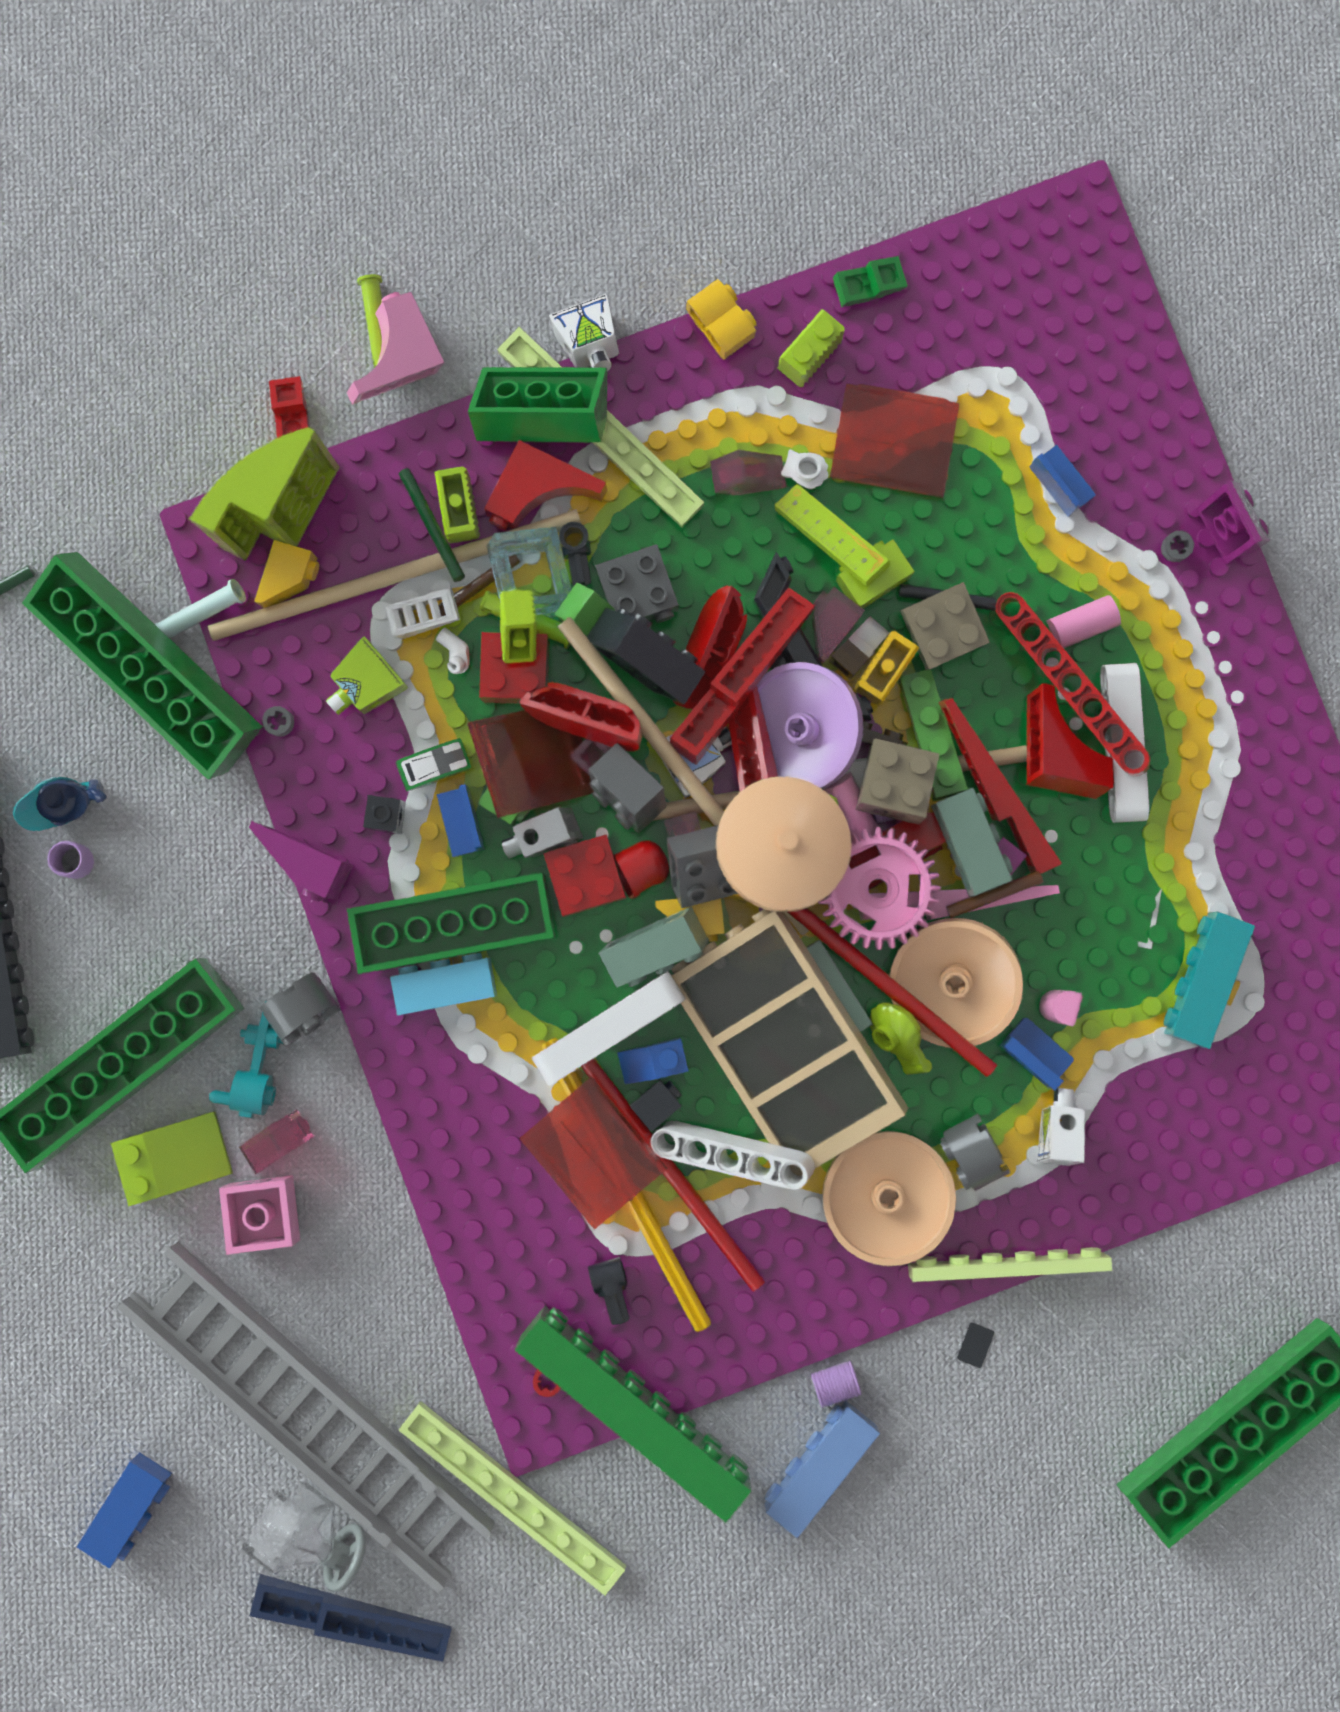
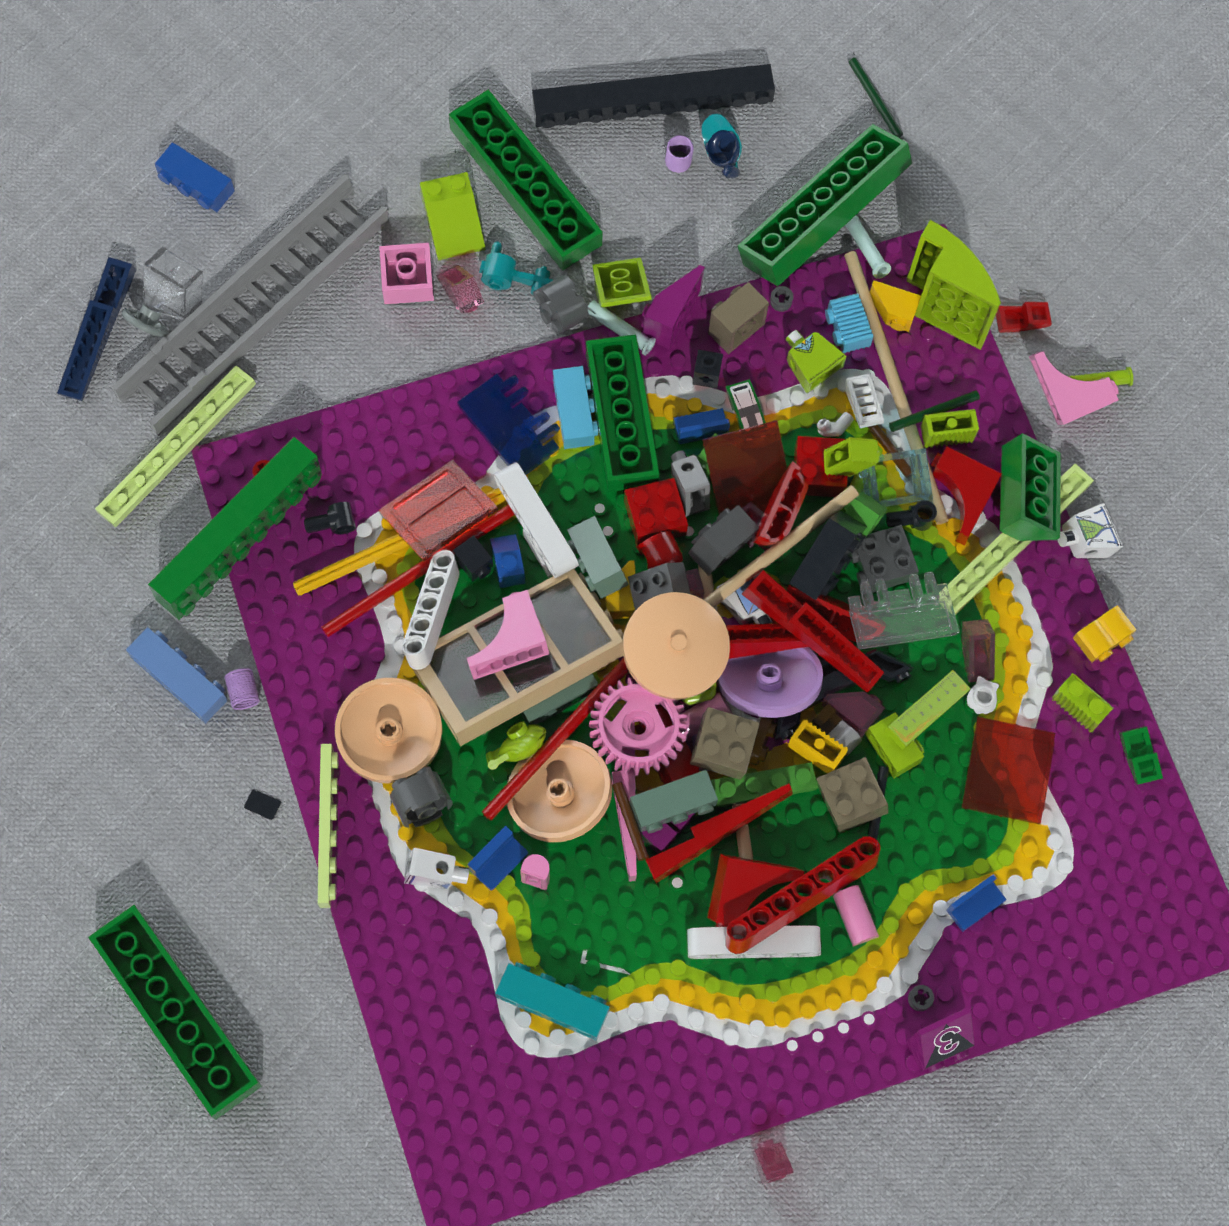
camera: 85 degrees right, 15 degrees down
(272, 930) = (621, 282): none -> lime slope
(312, 633) = (849, 323): none -> medium azure brick
(314, 776) = (738, 317): none -> dark tan brick
(326, 930) = (620, 326): none -> light aqua pin
(471, 1070) = (508, 429): none -> clear blue hinge
(717, 566) = (900, 618): none -> clear hinge
(776, 1042) = (516, 642): none -> bright pink arch

